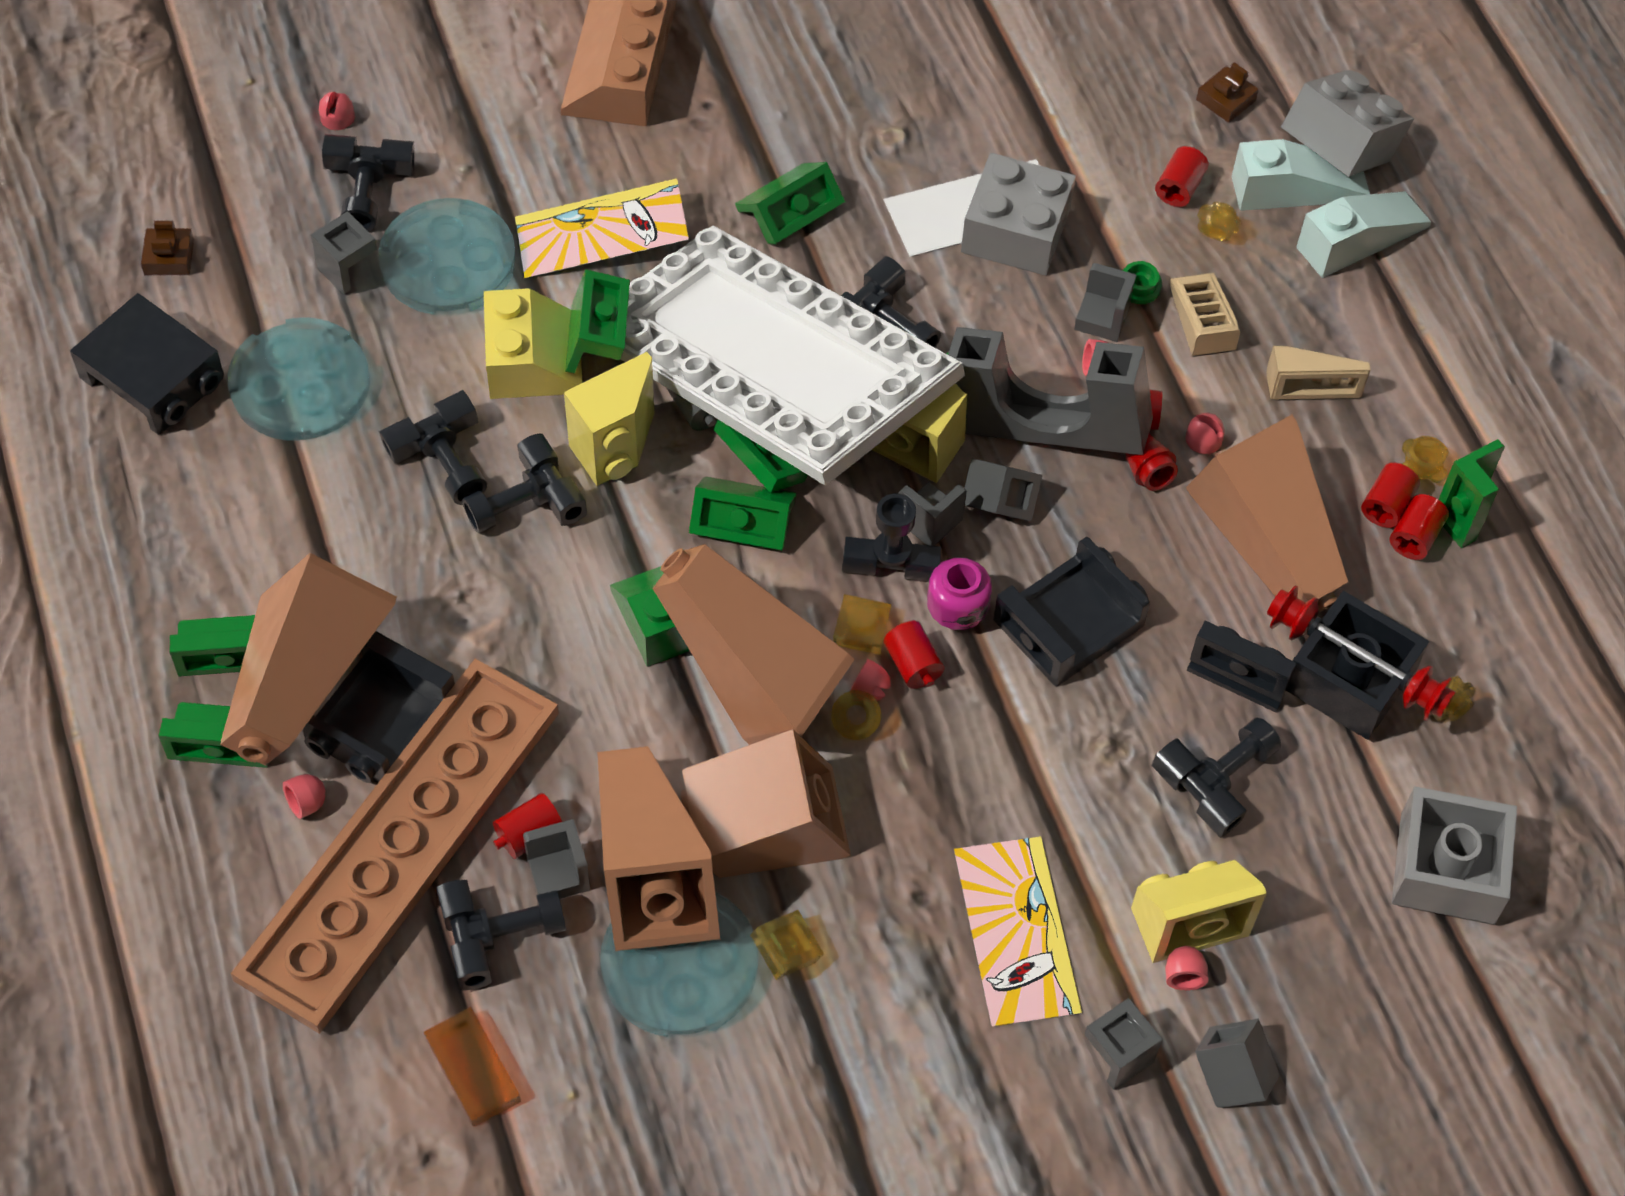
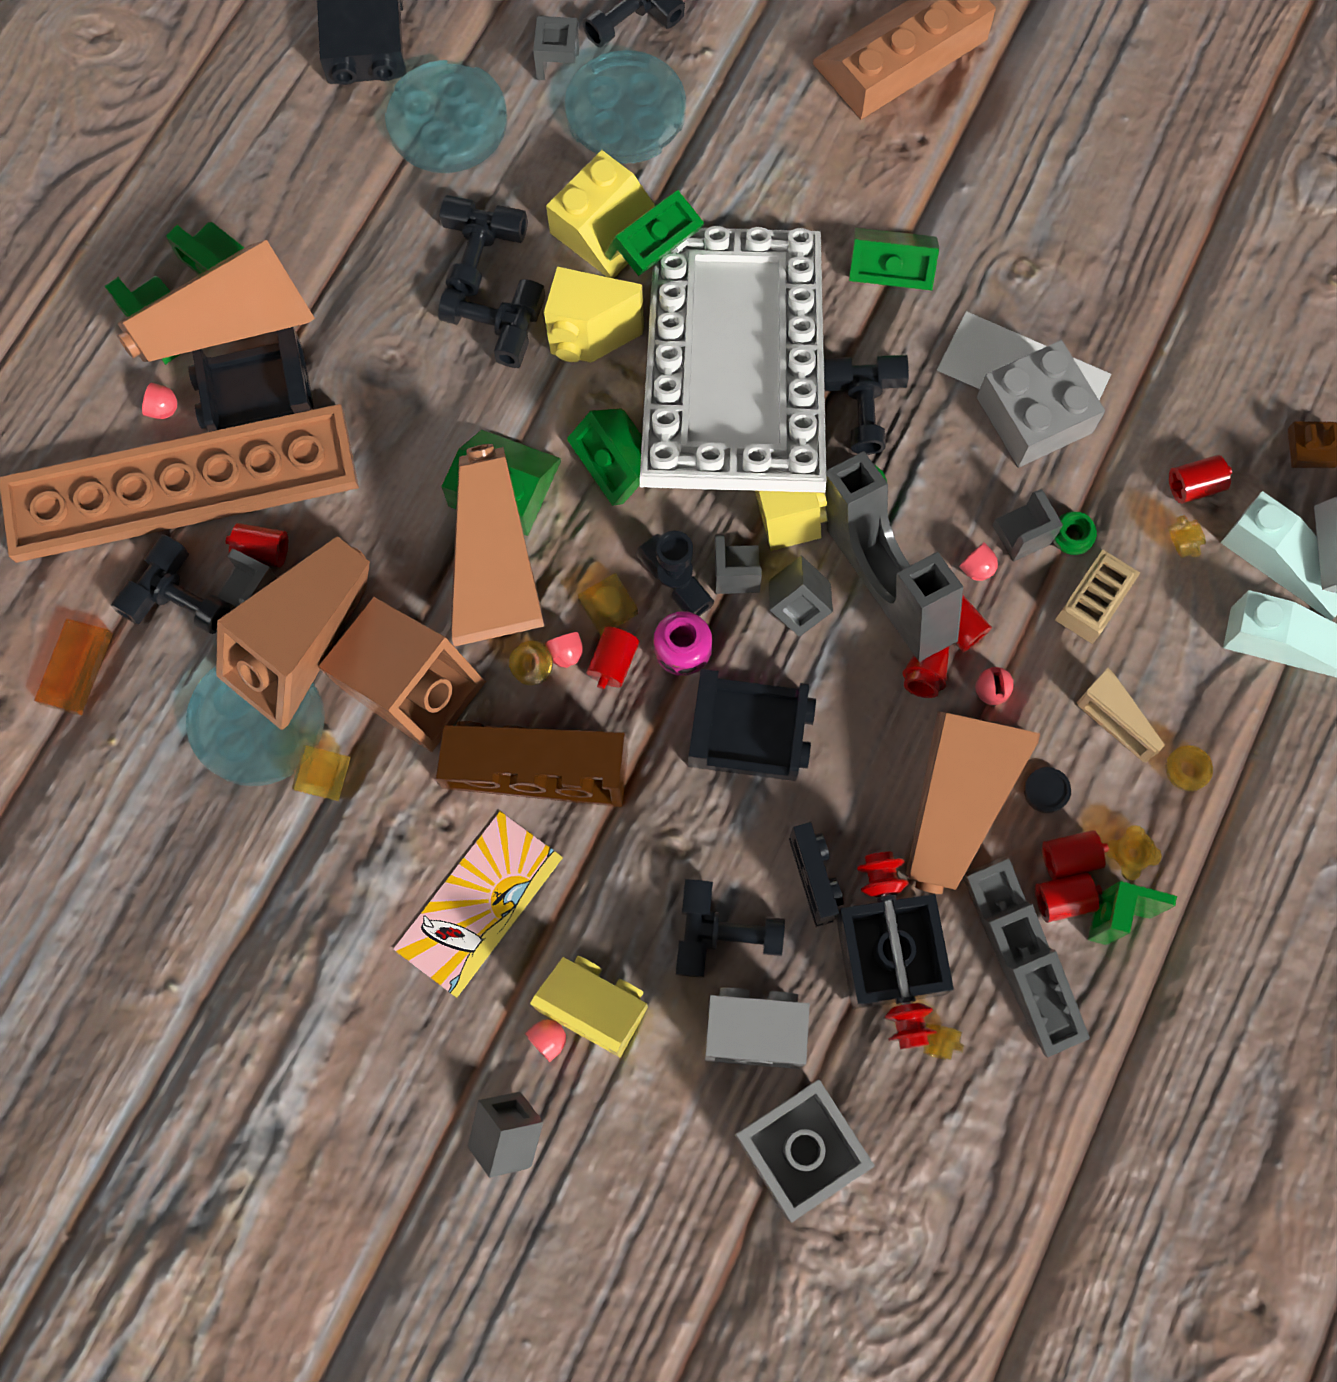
camera: 50 degrees right, 15 degrees up
(601, 228) = (744, 170): sticker -> none
(952, 774) = (534, 763): none -> reddish brown wedge
(1124, 1042) = (442, 1045): dark grey panel -> none
(1327, 471) = (1047, 790): none -> black piece
(1331, 803) = (757, 1029): none -> light grey brick
(1396, 362) = (1198, 759): none -> clear yellow plate
(1447, 596) = (1025, 957): none -> dark grey slope

